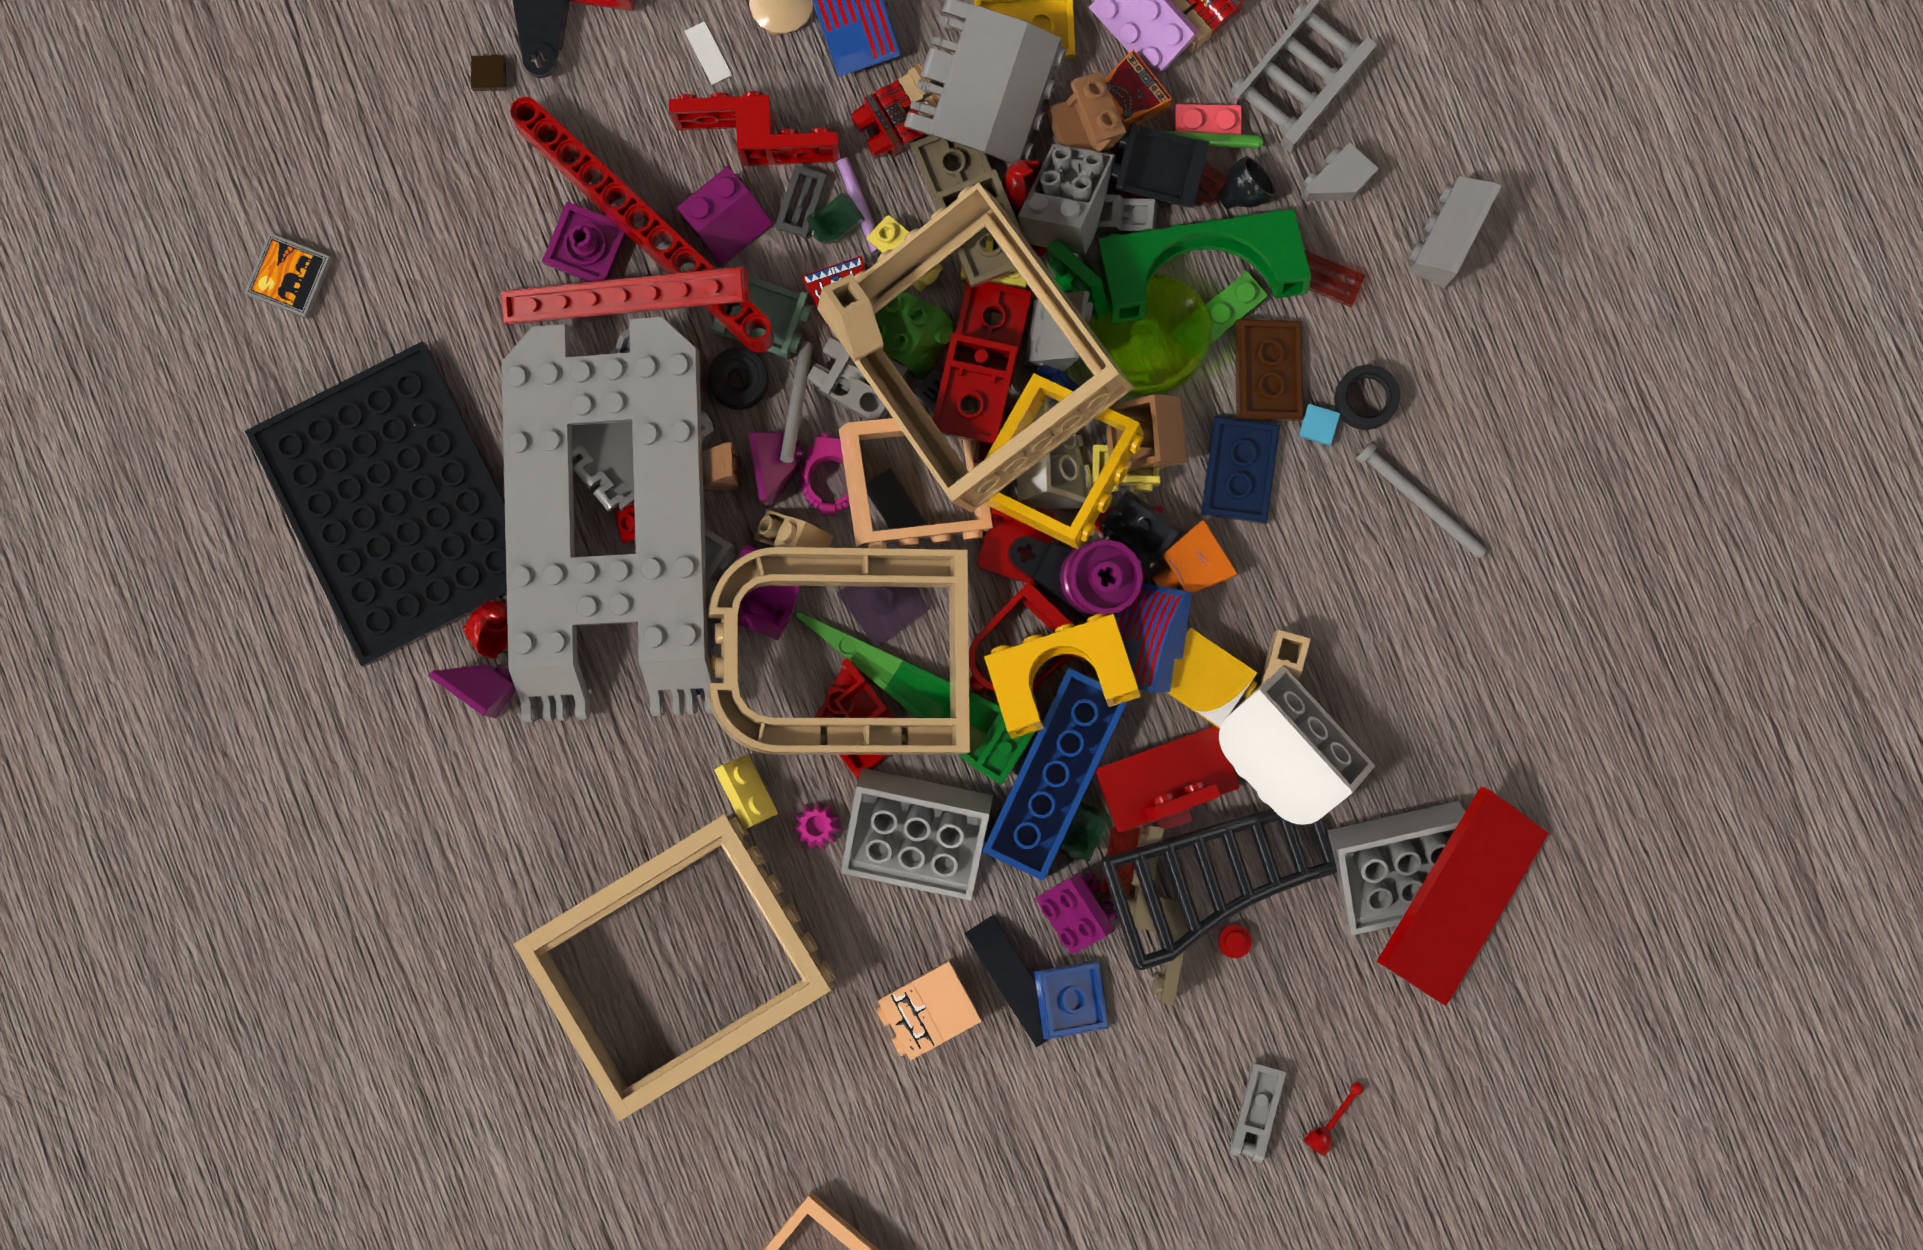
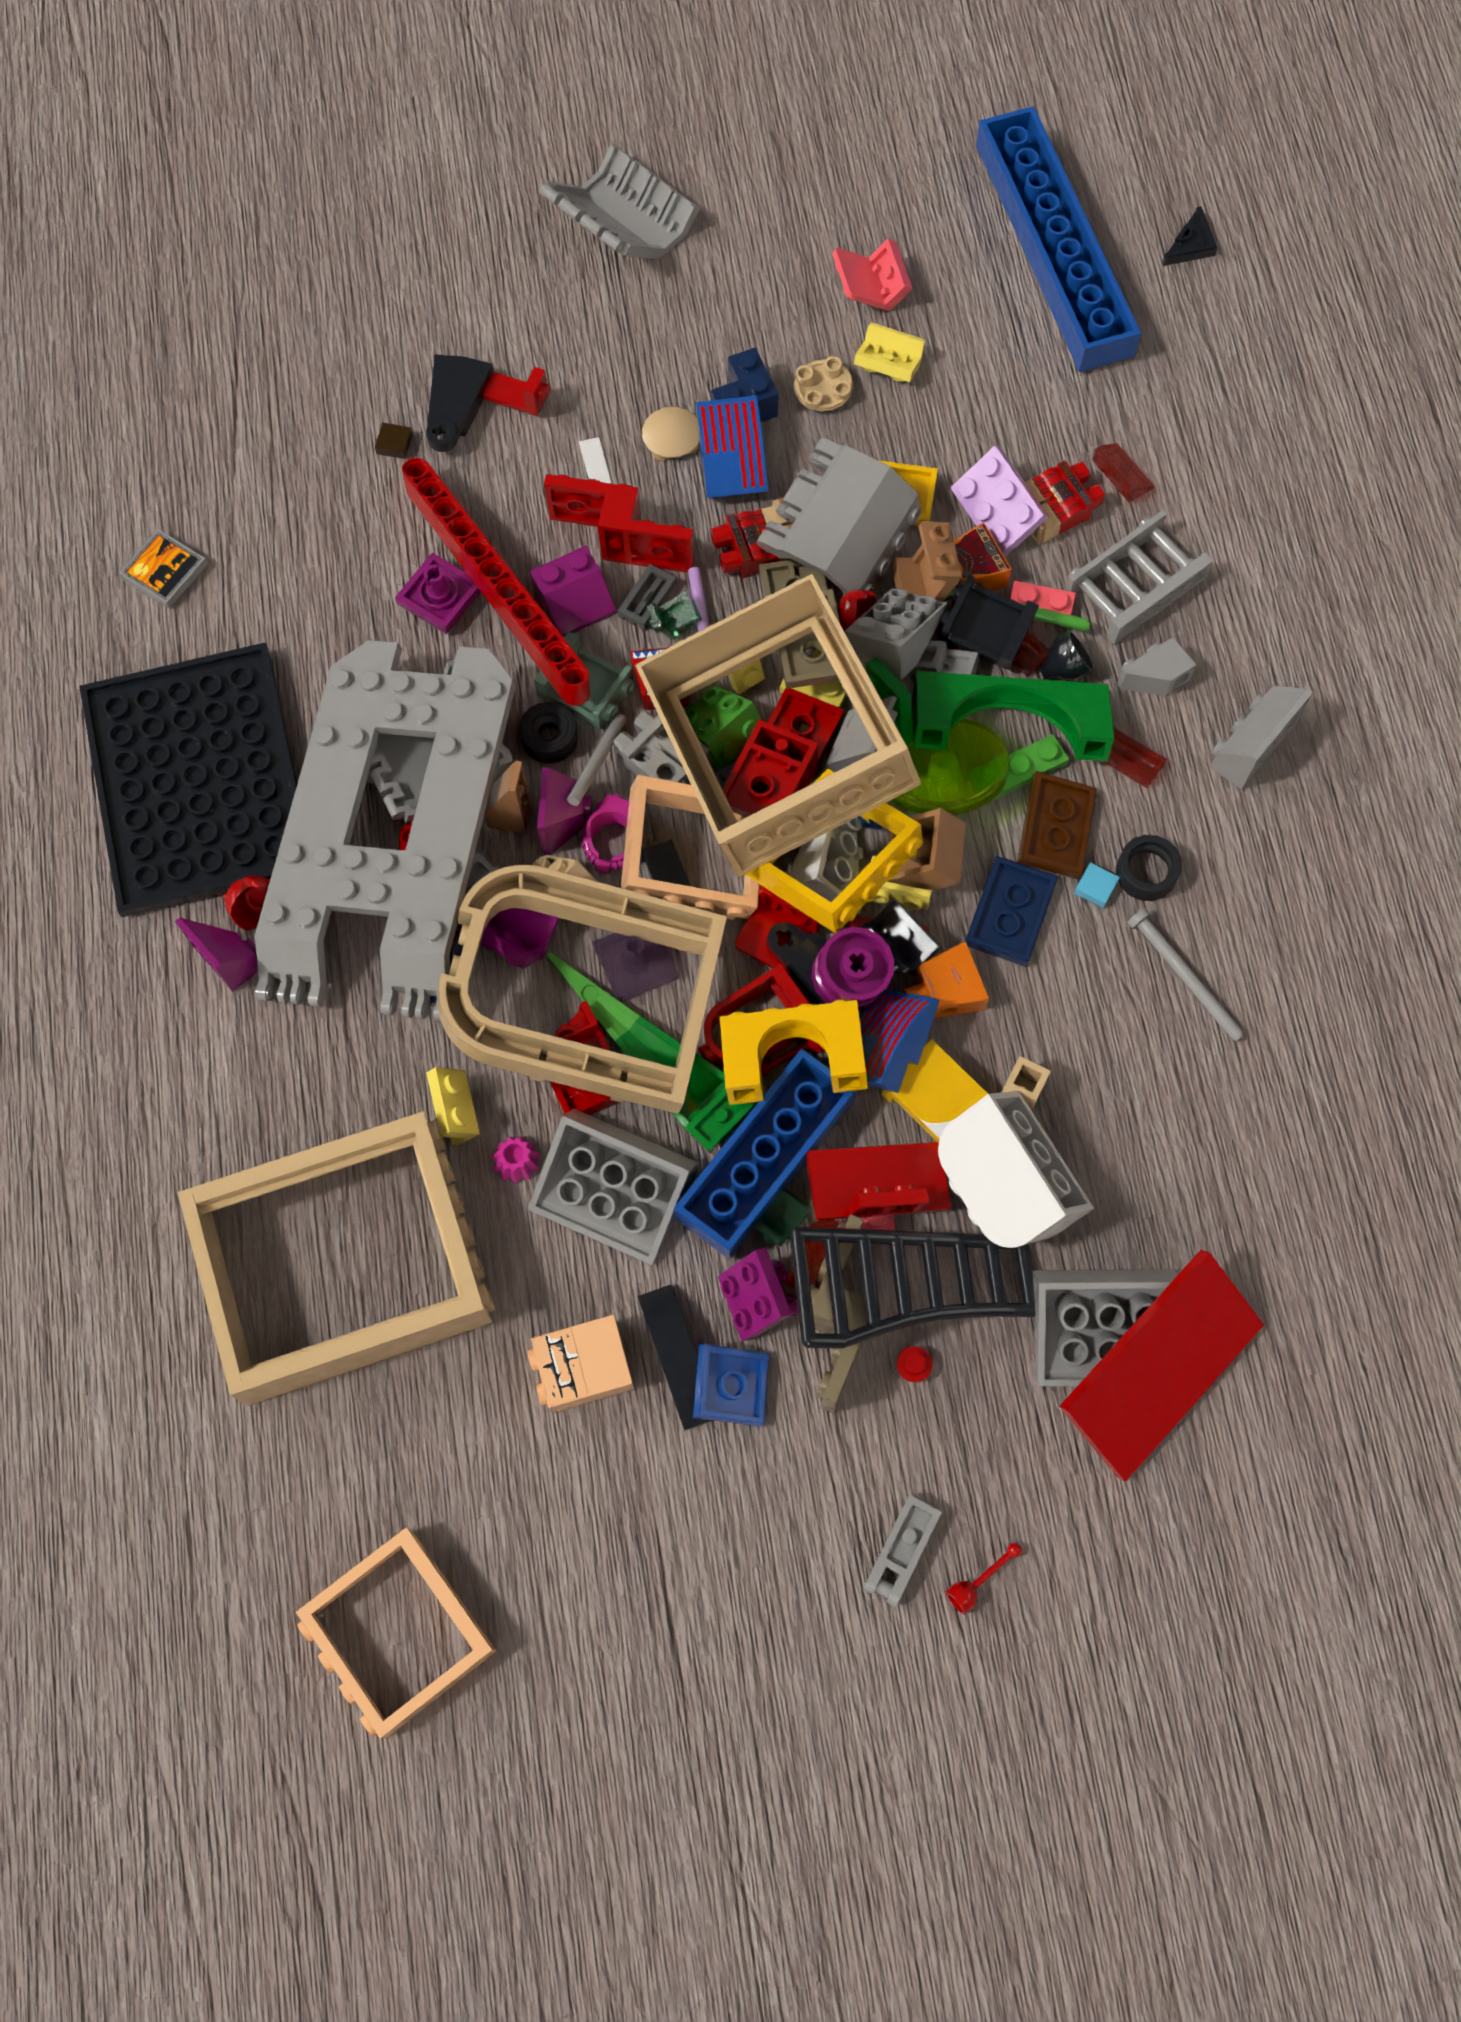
camera: 10 degrees right, 15 degrees down
(625, 295) = (471, 630): red tile -> none
(850, 317) = (663, 667): tan slope -> none

